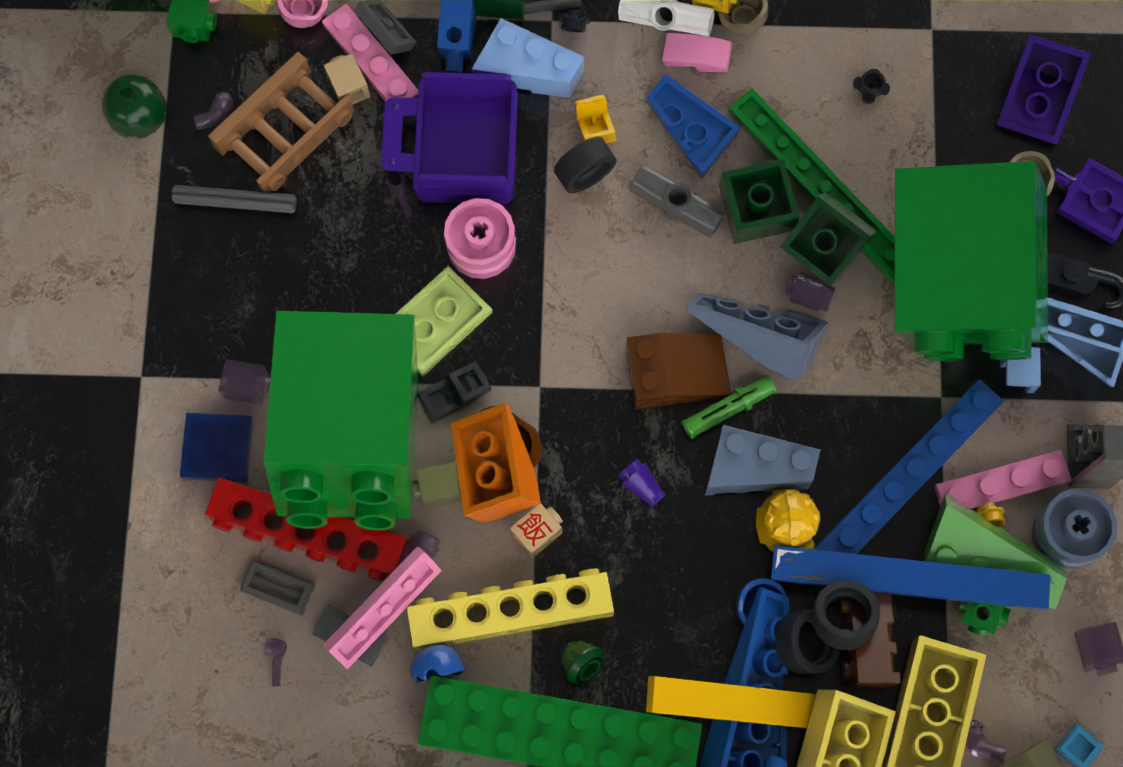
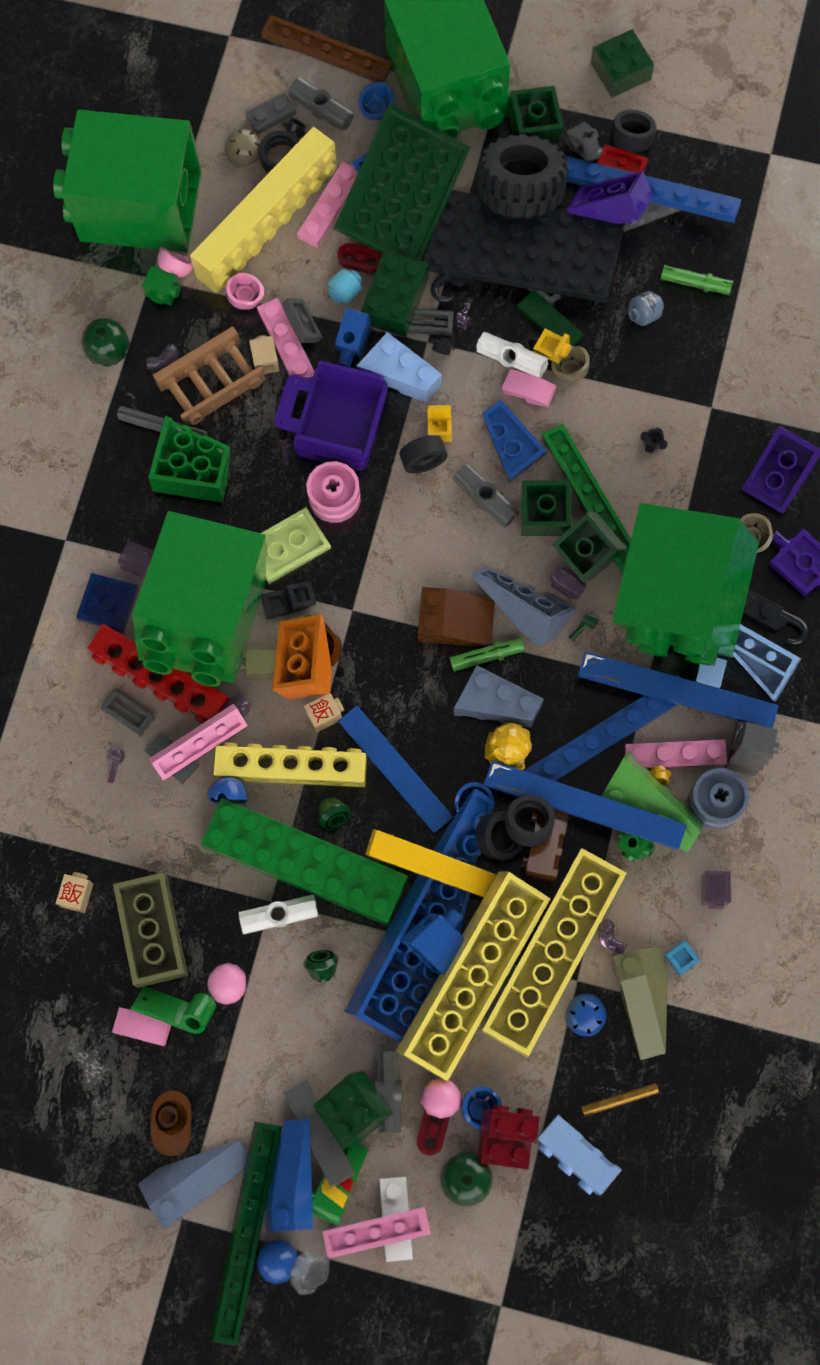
camera: 15 degrees right, 0 degrees up
(283, 241) = (189, 464): none -> green wedge
(641, 482) = (408, 694): dark purple cone -> none
(648, 584) = (395, 770): none -> blue tile
(849, 334) = (590, 620): none -> dark green hand
(987, 400) = (677, 690): none -> blue tile

